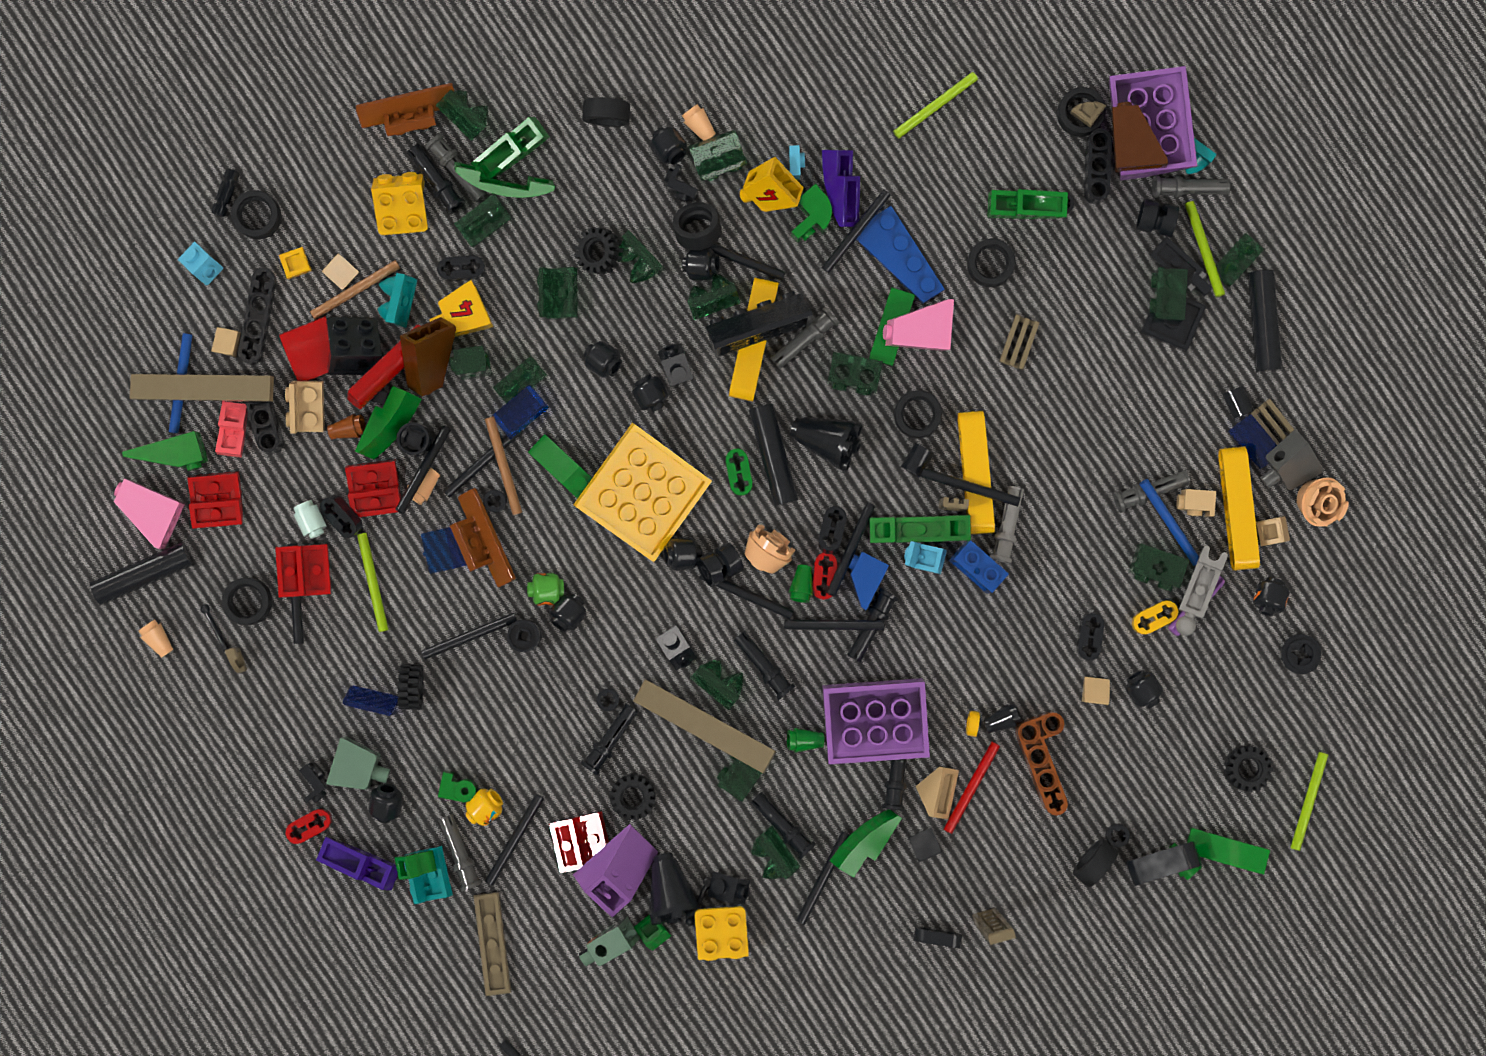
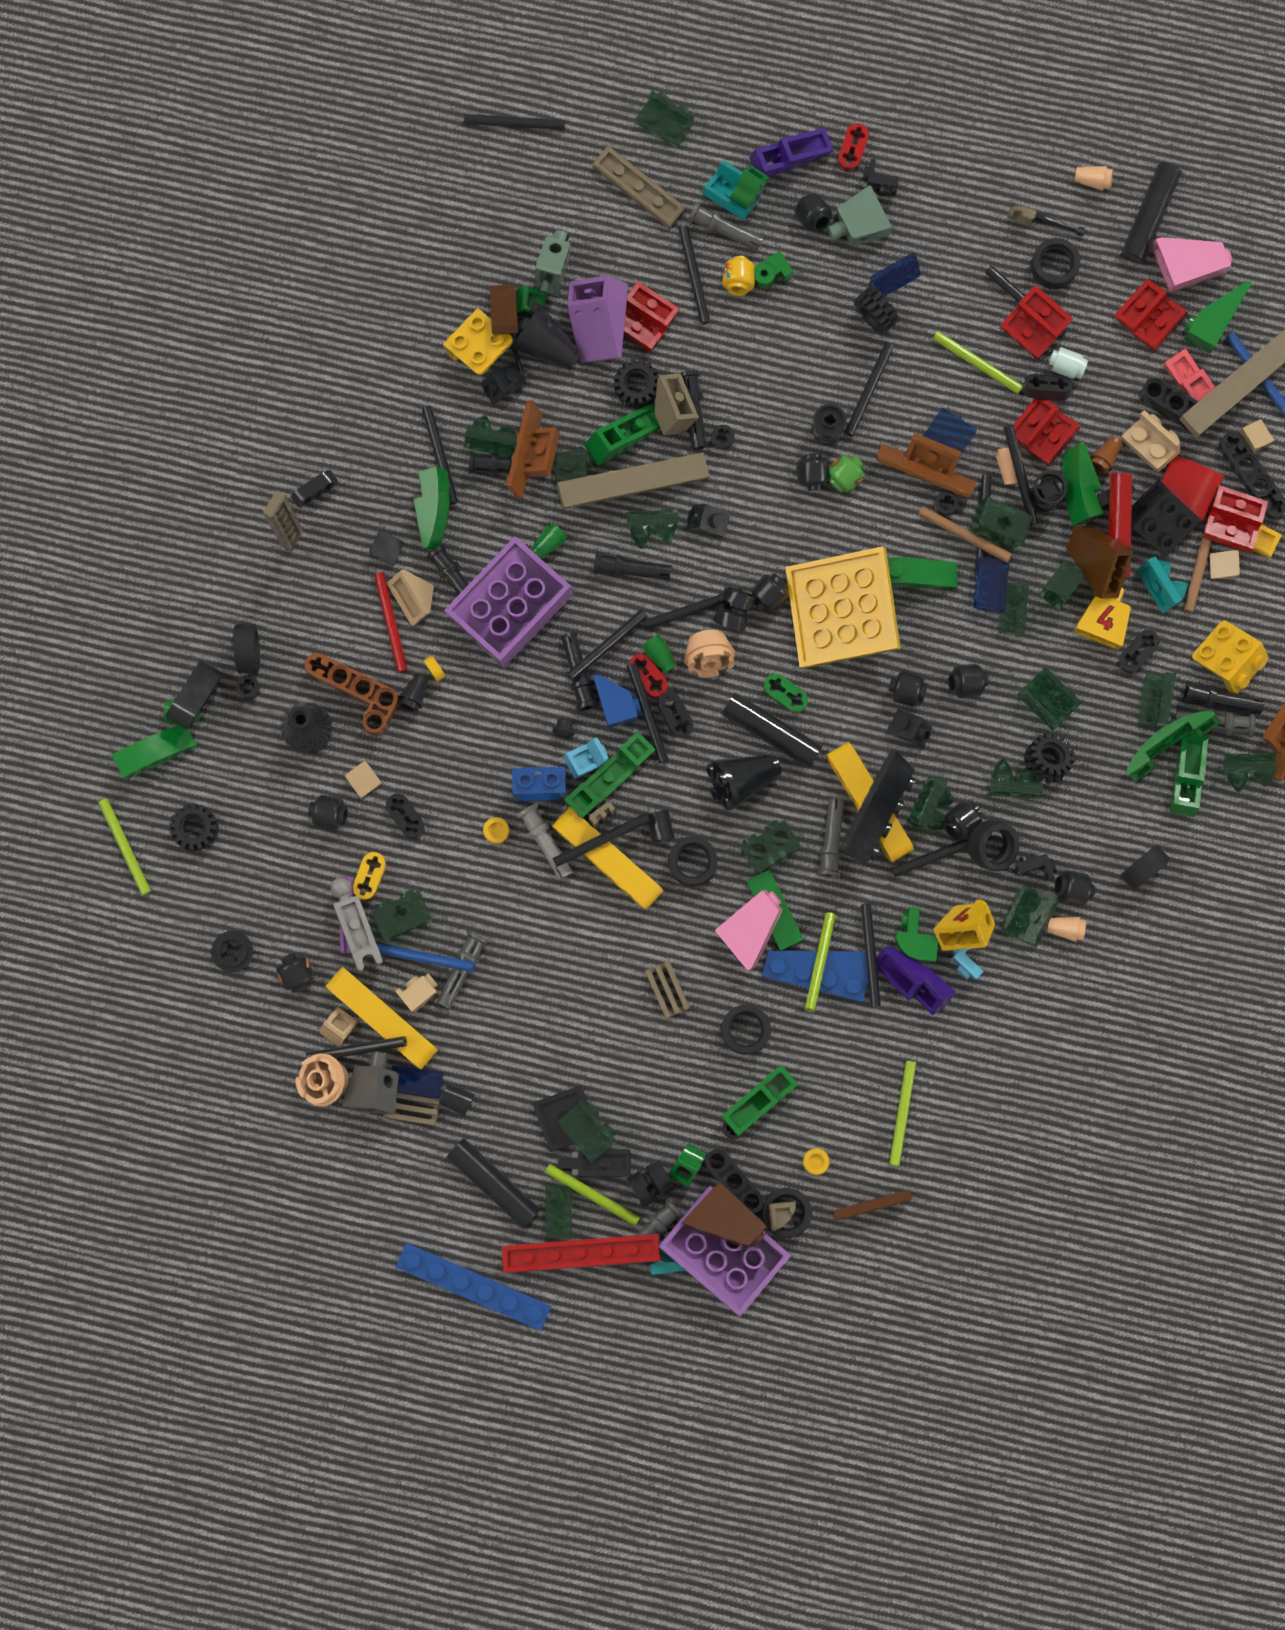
camera: 135 degrees right, 5 degrees down
(301, 295) = (1235, 519): none -> red slope
(425, 976) = (665, 119): none -> clear green bracket
(461, 439) = (1013, 521): none -> clear green brick
(622, 754) = (674, 405): none -> dark tan slope
(677, 767) = (622, 434): none -> green slope
(680, 941) = (503, 309): none -> reddish brown tile
(755, 815) = (533, 450): none -> dark orange bracket
(896, 259) = (820, 962): none -> lime piece
(920, 593) = (563, 729): none -> black piece
(1017, 61) = (871, 1205): none -> reddish brown tile
(1027, 128) = (816, 1161): none -> yellow tile
(1035, 566) = (496, 830): none -> yellow tile
(1093, 763) = (308, 736): none -> black cone
(1117, 206) = (691, 1160): none -> green leg
(1251, 214) = (581, 1253): none -> red plate
(1276, 500) = (362, 1048): none -> black piece
(1343, 263) = (473, 1286): none -> blue plate

